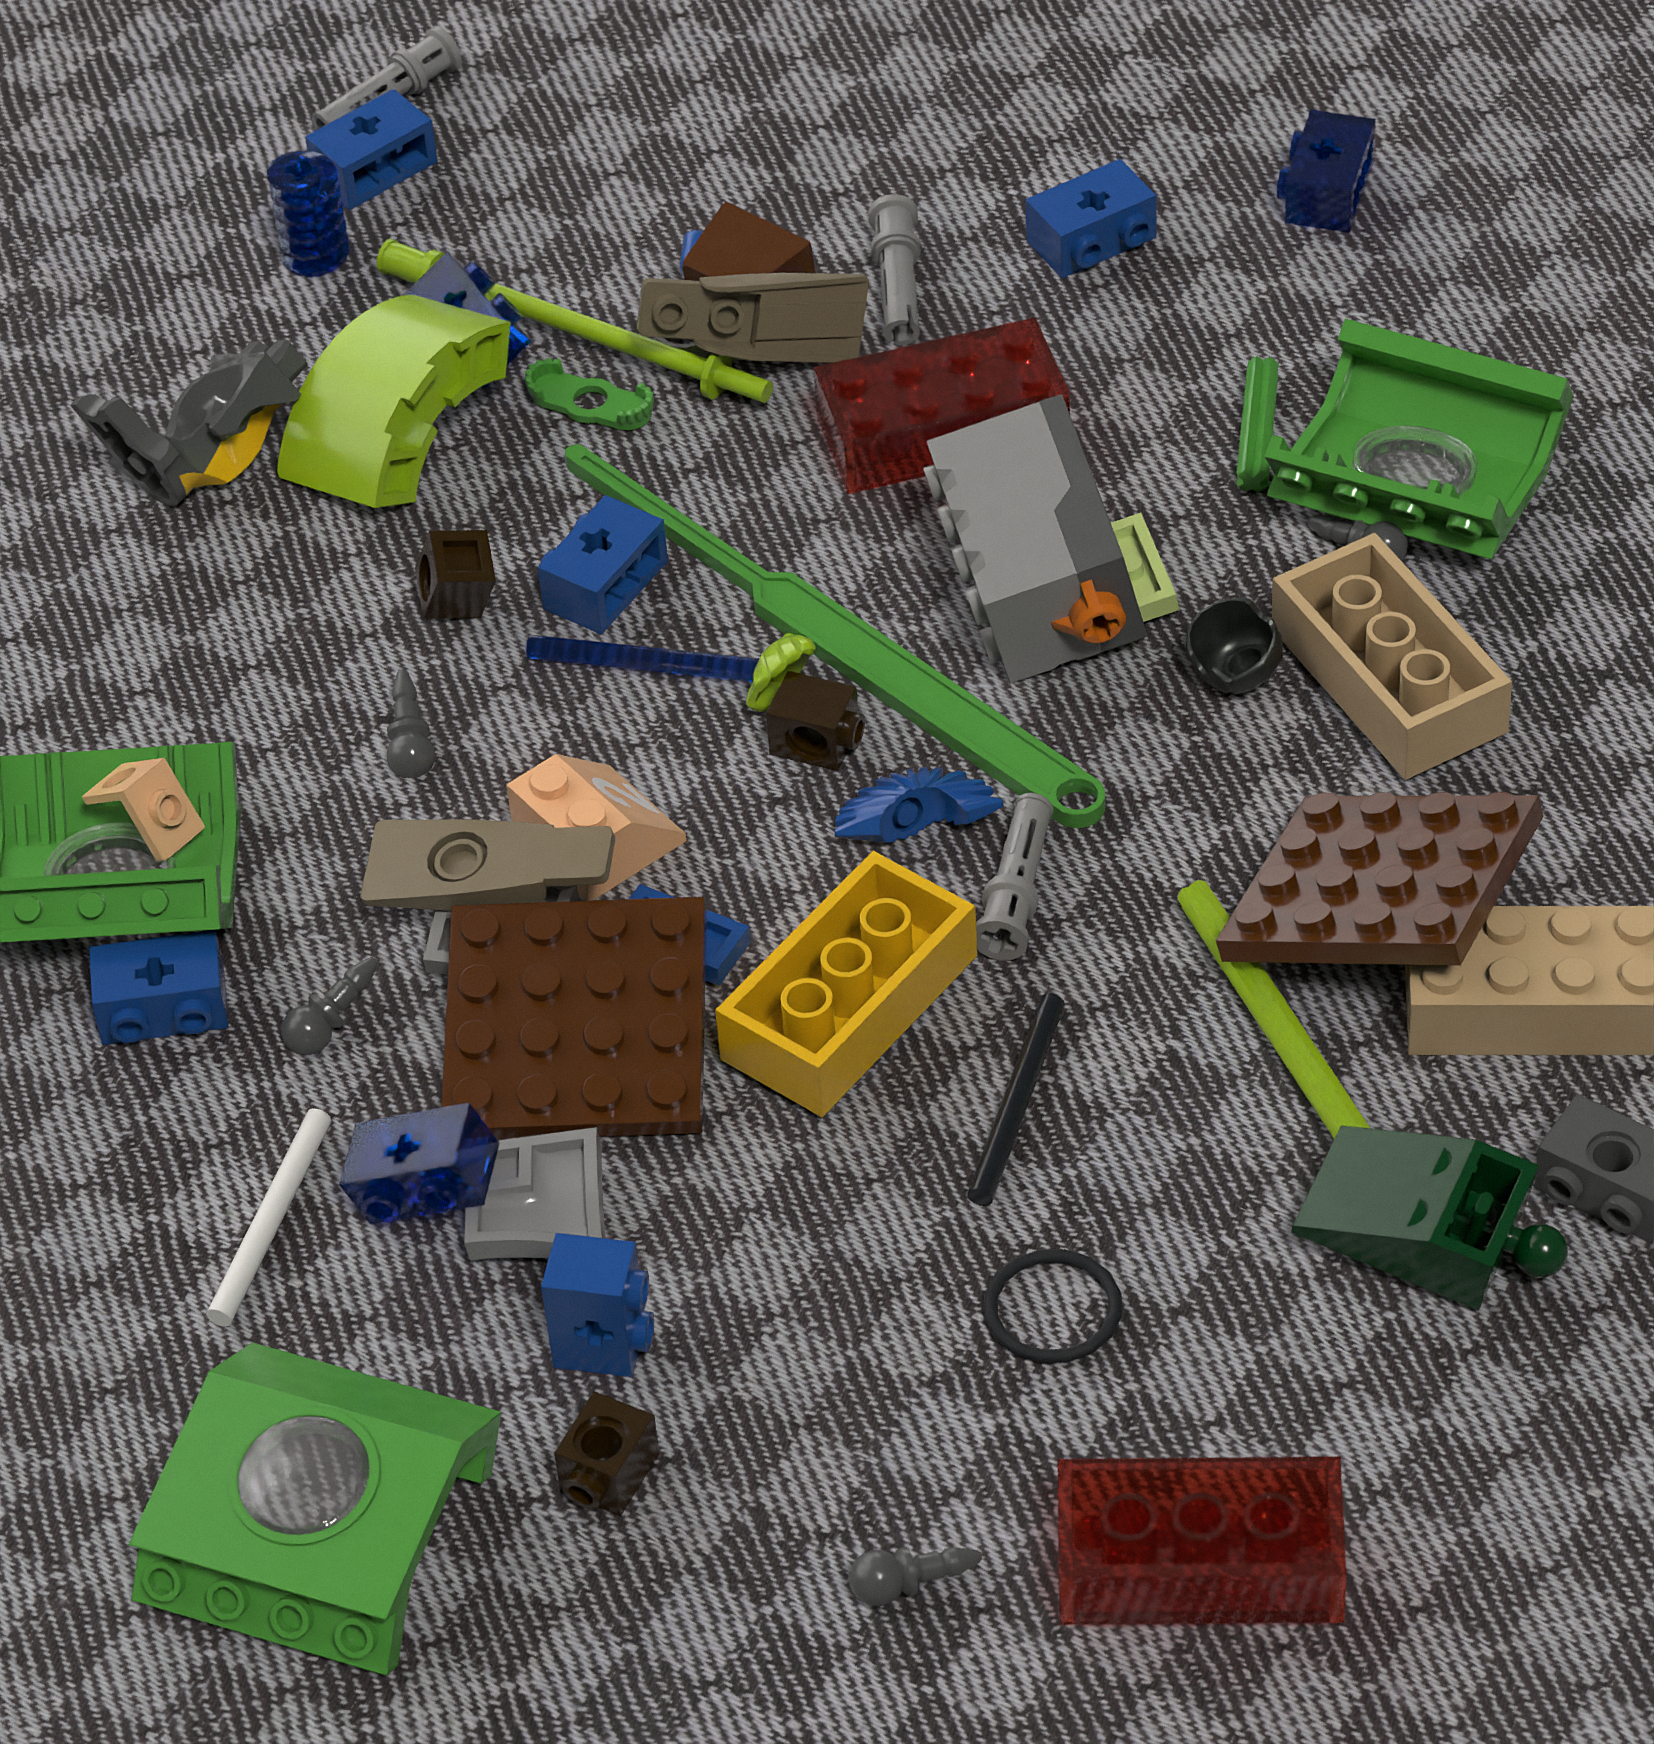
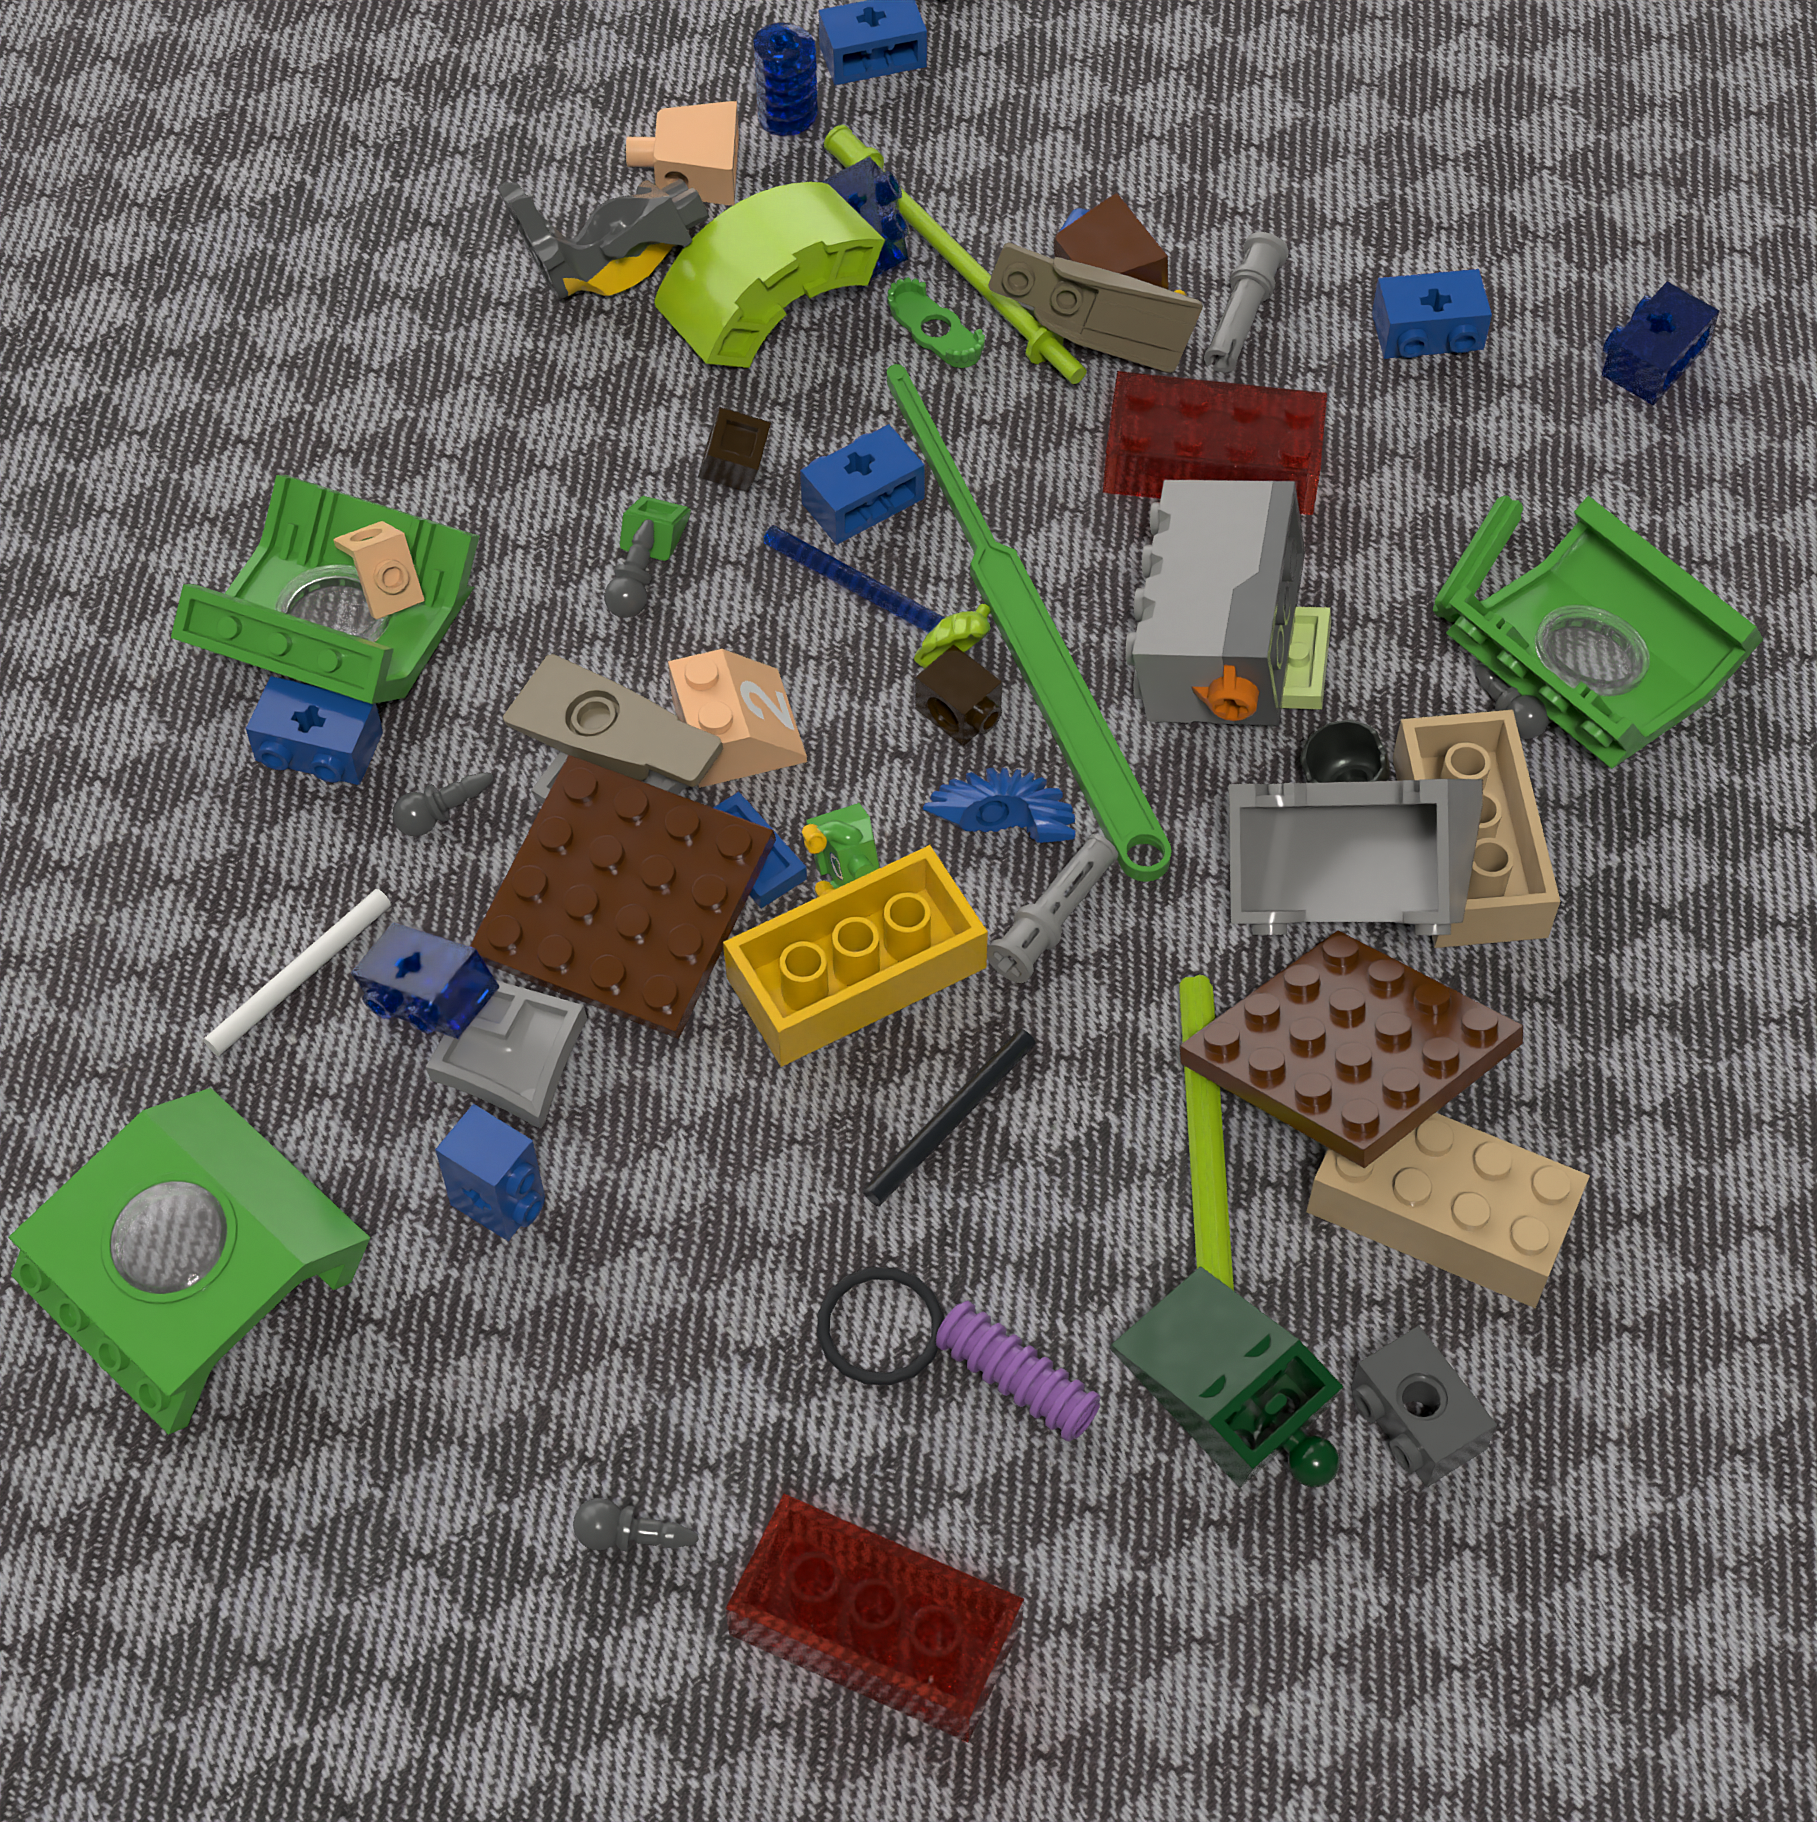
camera: 20 degrees right, 10 degrees up
(239, 307) = (693, 146): none -> light nougat torso
(383, 676) = (668, 522): none -> bright green slope
(606, 1431) = (445, 1287): dark brown brick -> none
(777, 893) = (841, 846): none -> bright green piece
(1212, 1287) = (1018, 1370): none -> medium lavender piece
(1293, 708) = (1353, 852): none -> light grey windscreen

